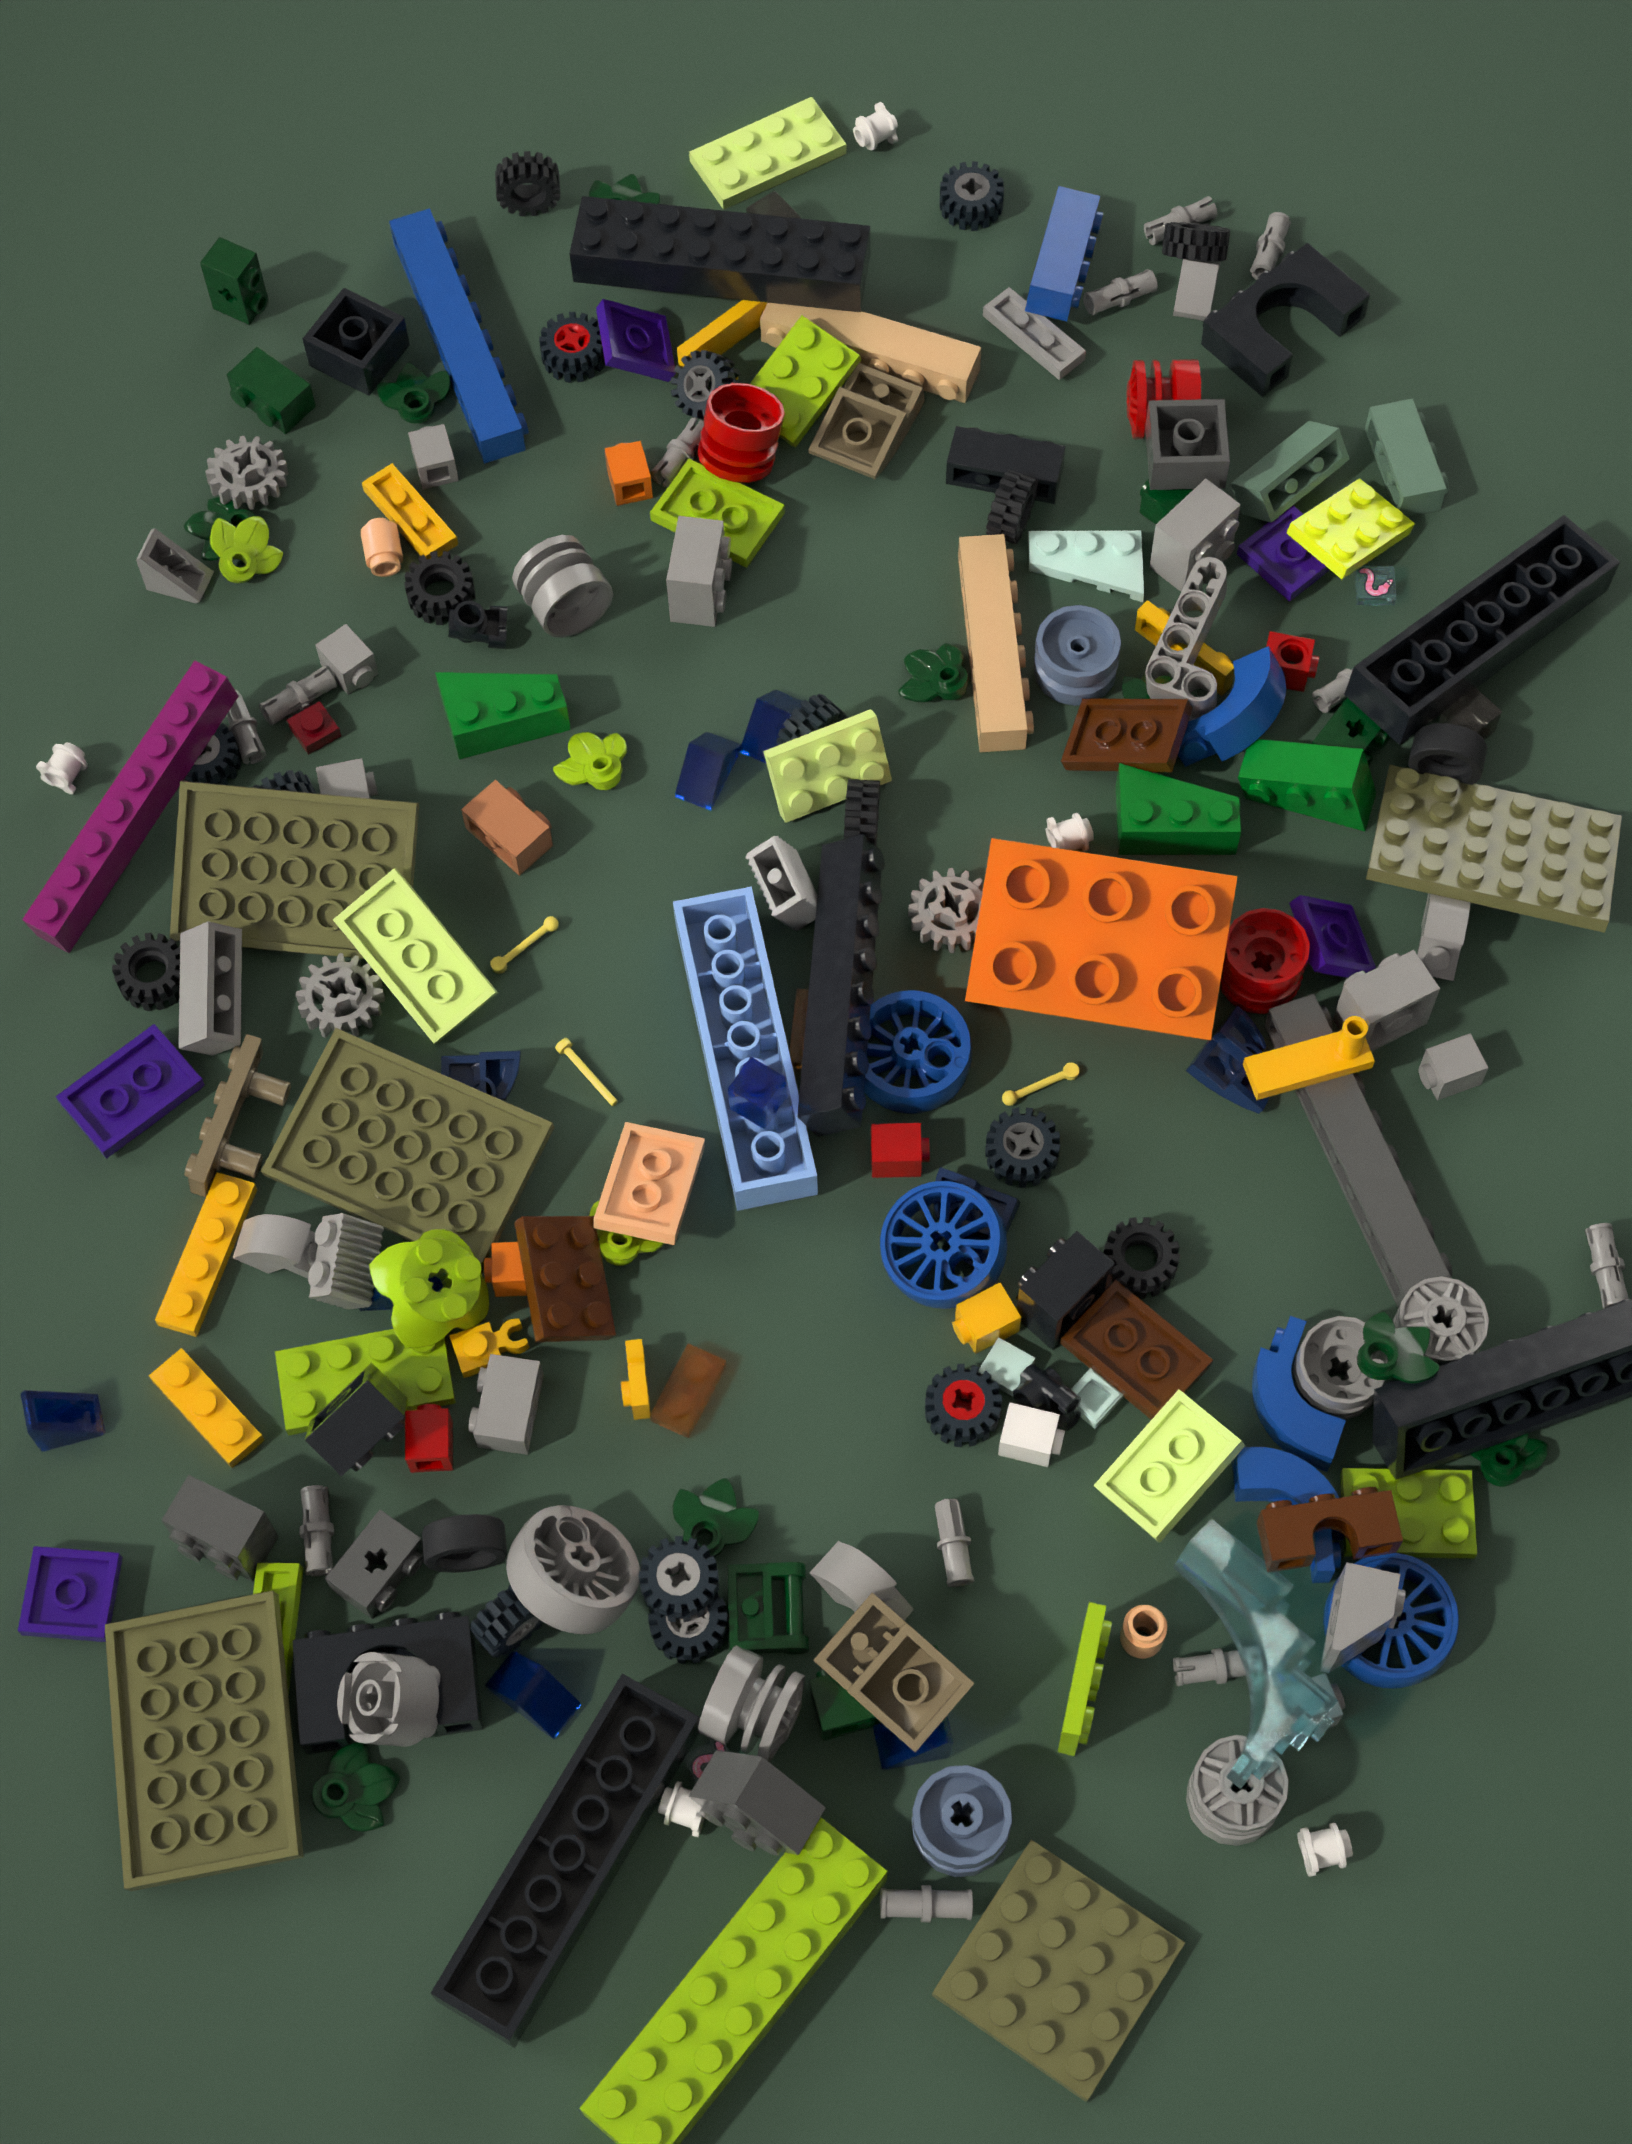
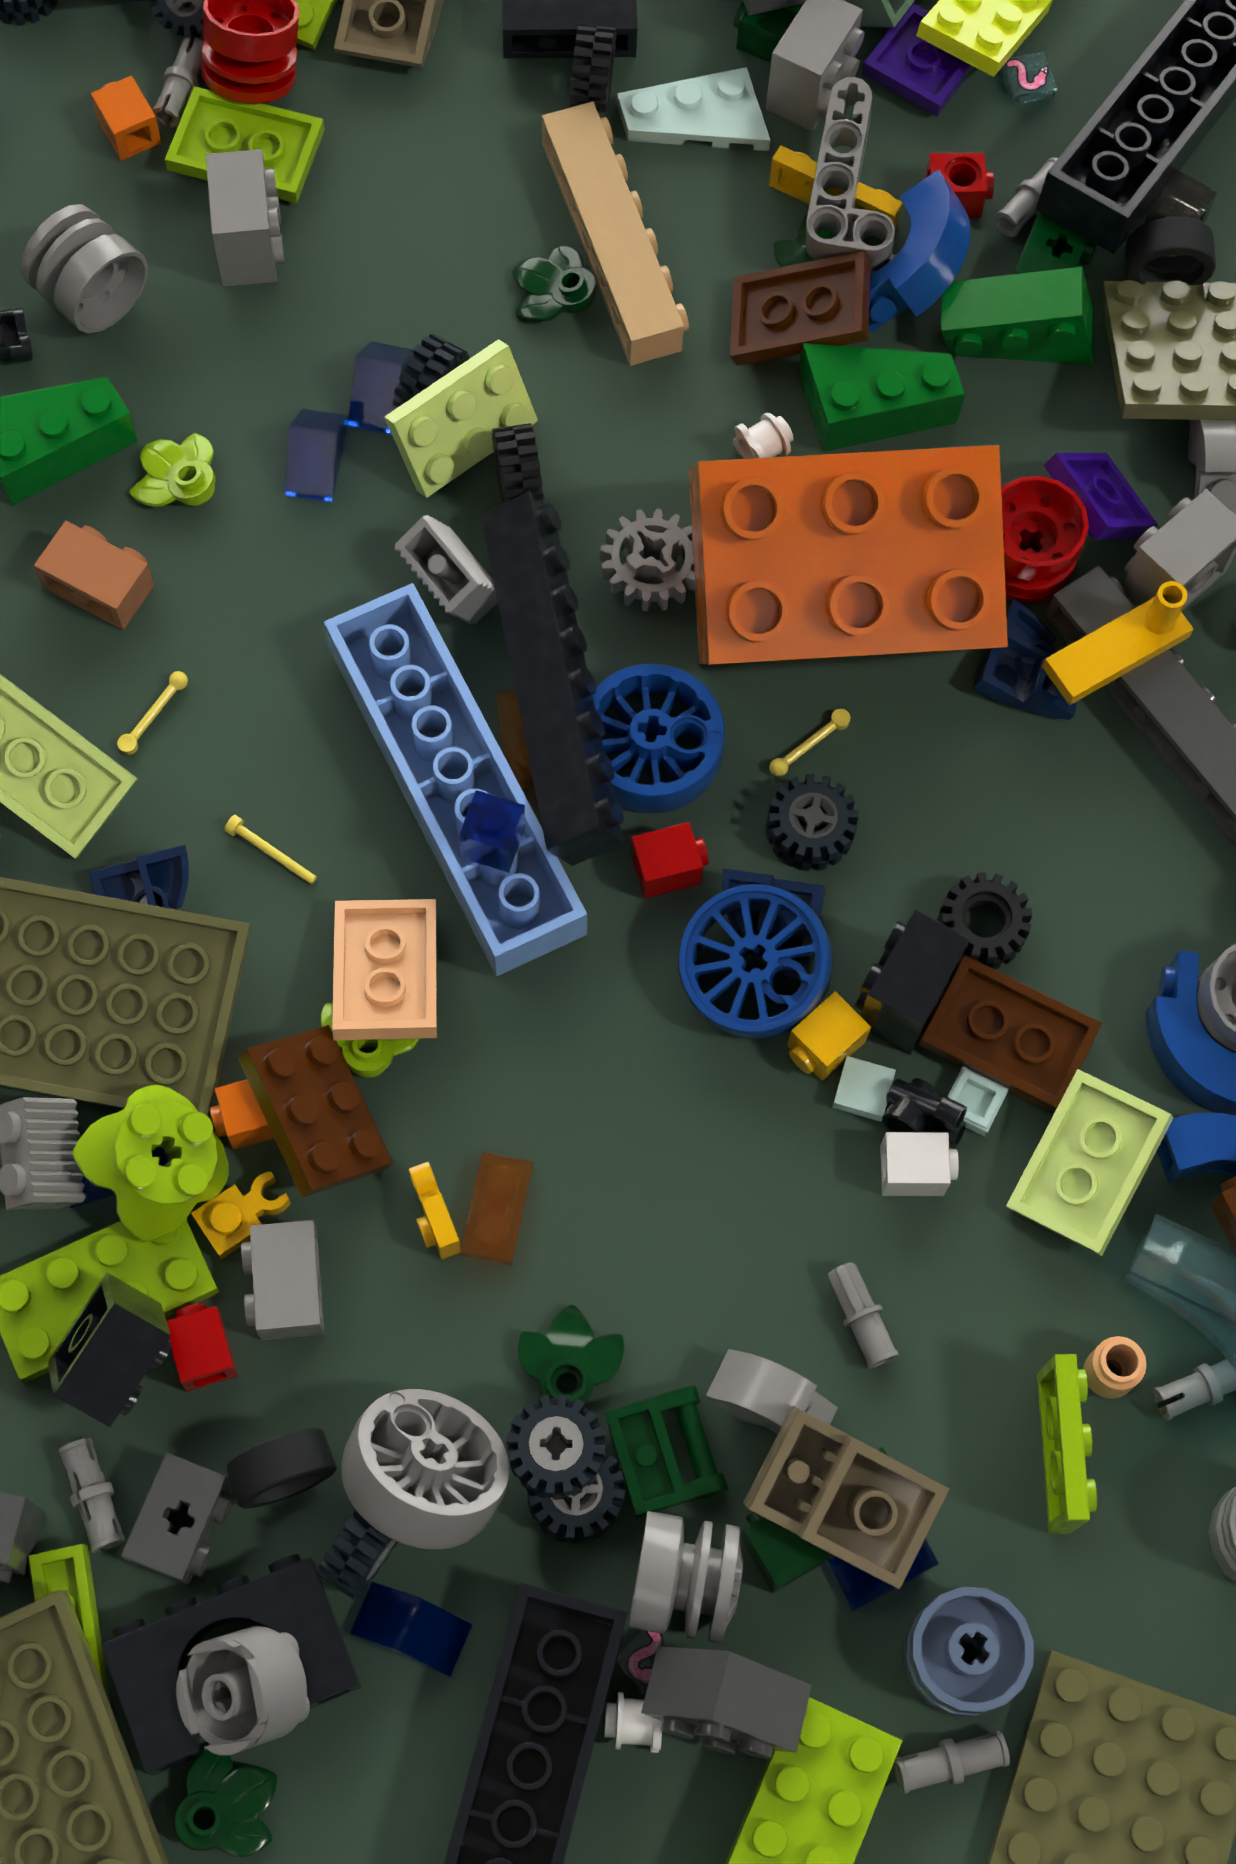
camera: 20 degrees left, 5 degrees up
(962, 1419) = (817, 1162): black wheel -> none
(1076, 654) = (715, 226): sand blue wheel -> none

